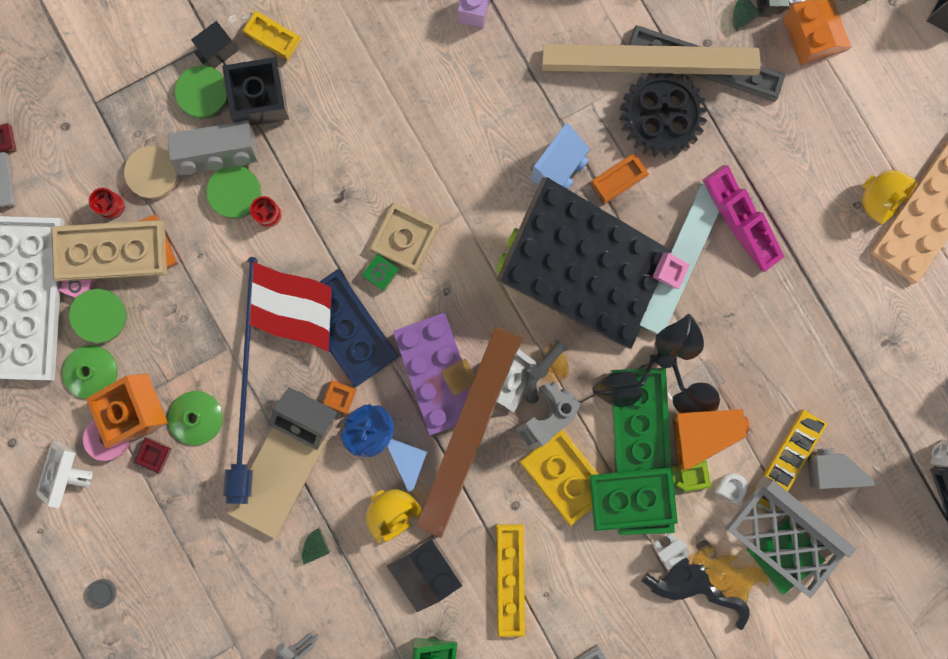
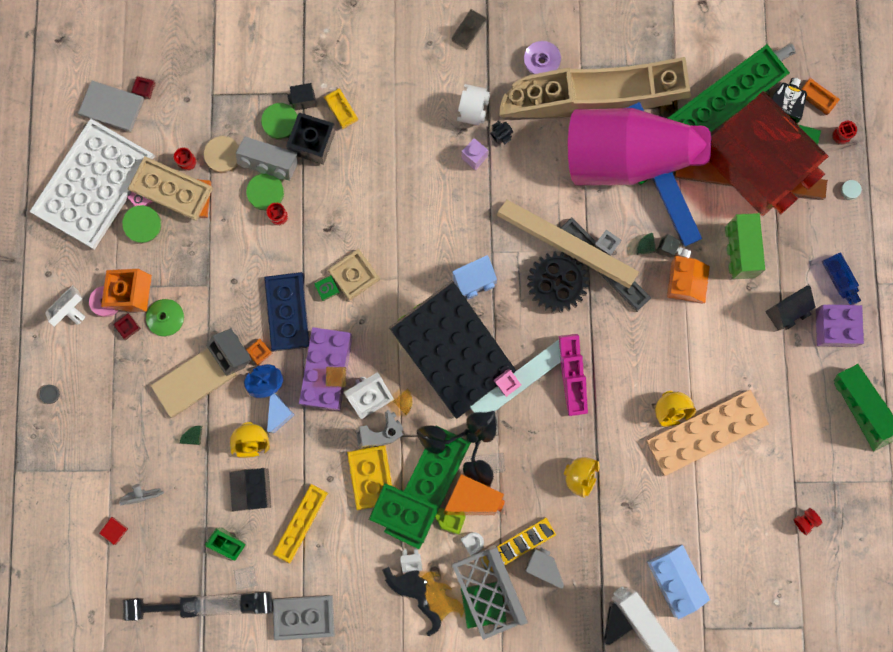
camera: 40 degrees right, 5 degrees down
(102, 370) = (126, 258): bright green dish -> none
(288, 309) = (256, 280): flag -> none
(469, 431) = (322, 414): dark orange tile -> none
(541, 370) = (391, 401): dark grey piece -> none
(619, 178) = (508, 308): orange tile -> none
(698, 32) = (607, 242): none -> light grey tile
(820, 336) = (581, 475): none -> yellow cylinder

